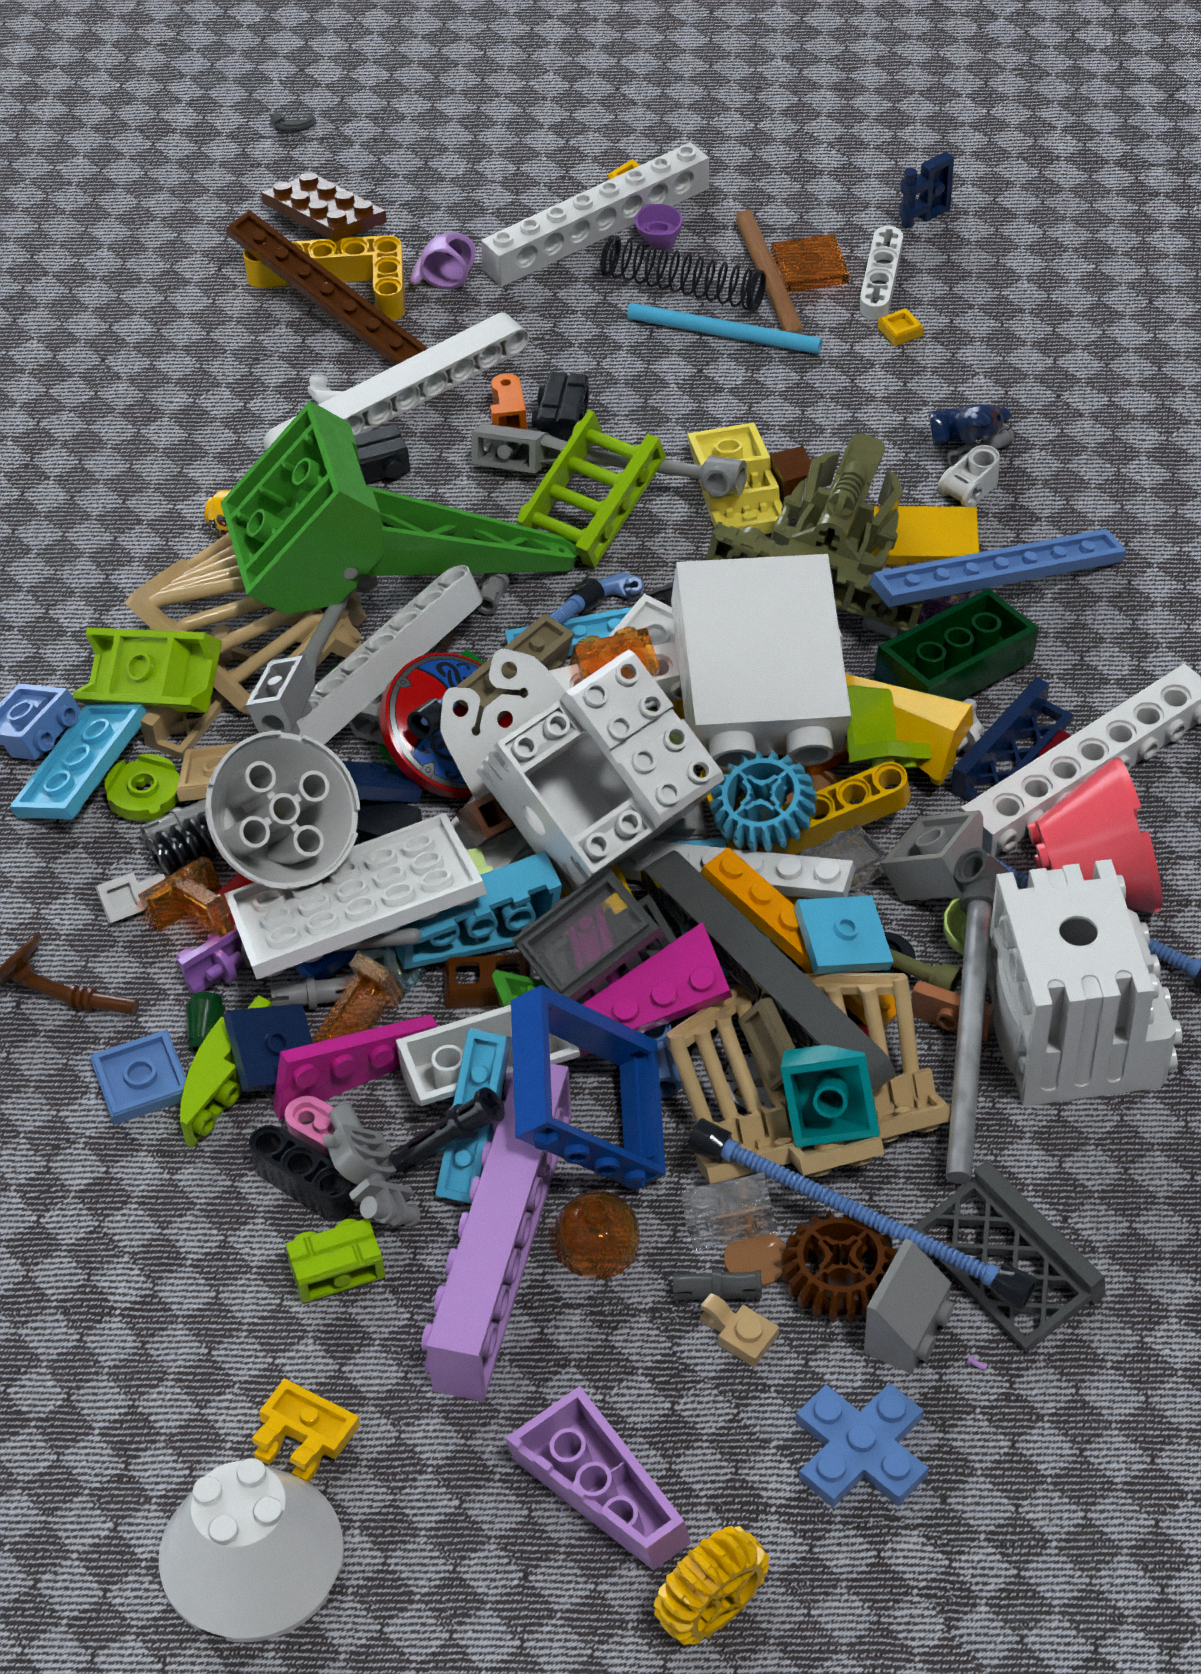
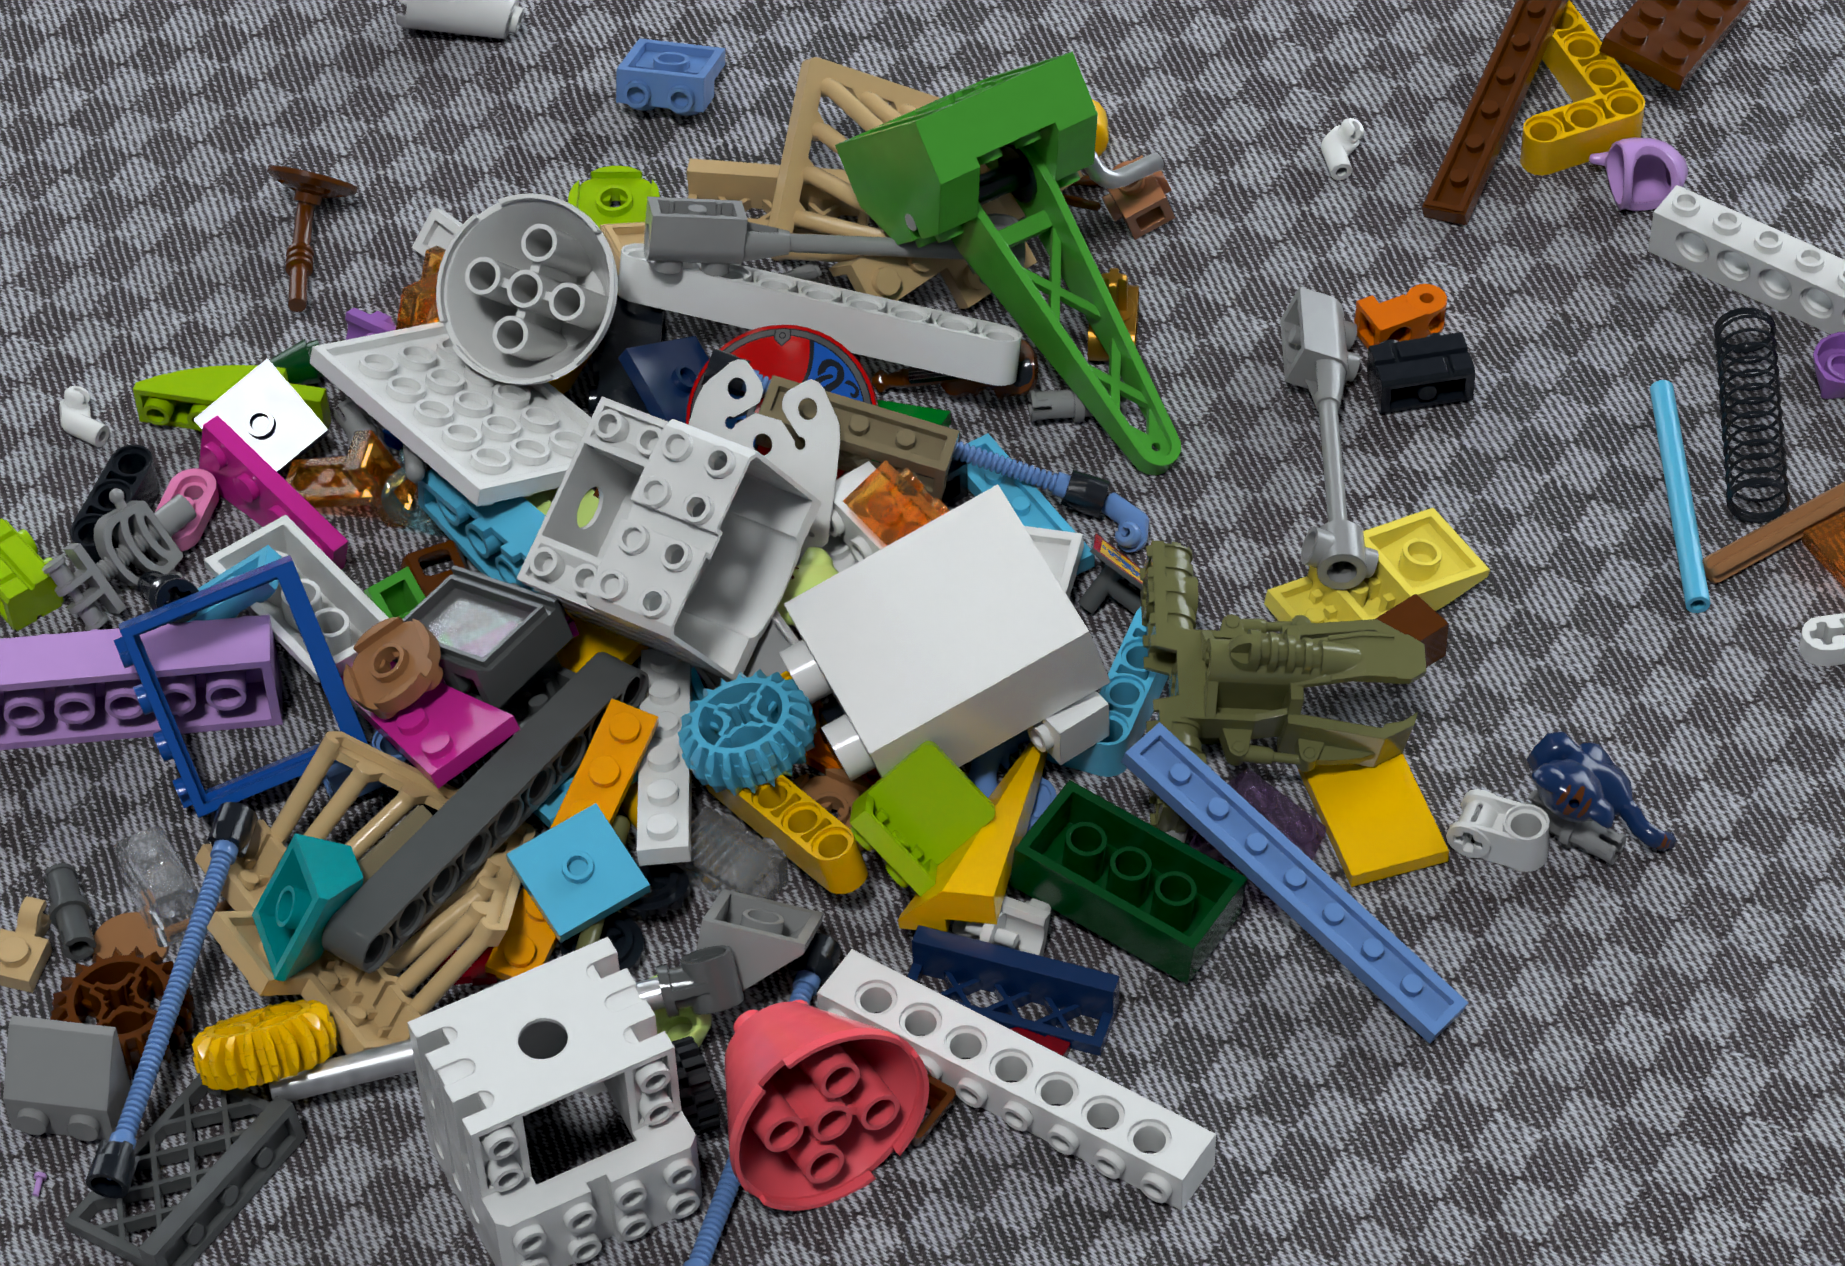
camera: 70 degrees right, 0 degrees up
(79, 761) = (621, 135): medium azure plate -> none
(139, 1076) = (214, 336): medium blue tile -> none
(152, 668) = (749, 138): lime piece -> none
(175, 1187) = (77, 420): none -> white arm
(382, 454) = (1236, 220): black brick -> none
(424, 375) = (1379, 209): white beam -> none
(597, 1234) = (111, 786): clear orange cylinder -> none
(609, 513) = (1263, 464): lime fence -> none
(636, 966) = (416, 672): none -> medium nougat plate
(900, 327) = (1791, 683): yellow tile -> none
(927, 1164) = (264, 1045): none -> yellow gear

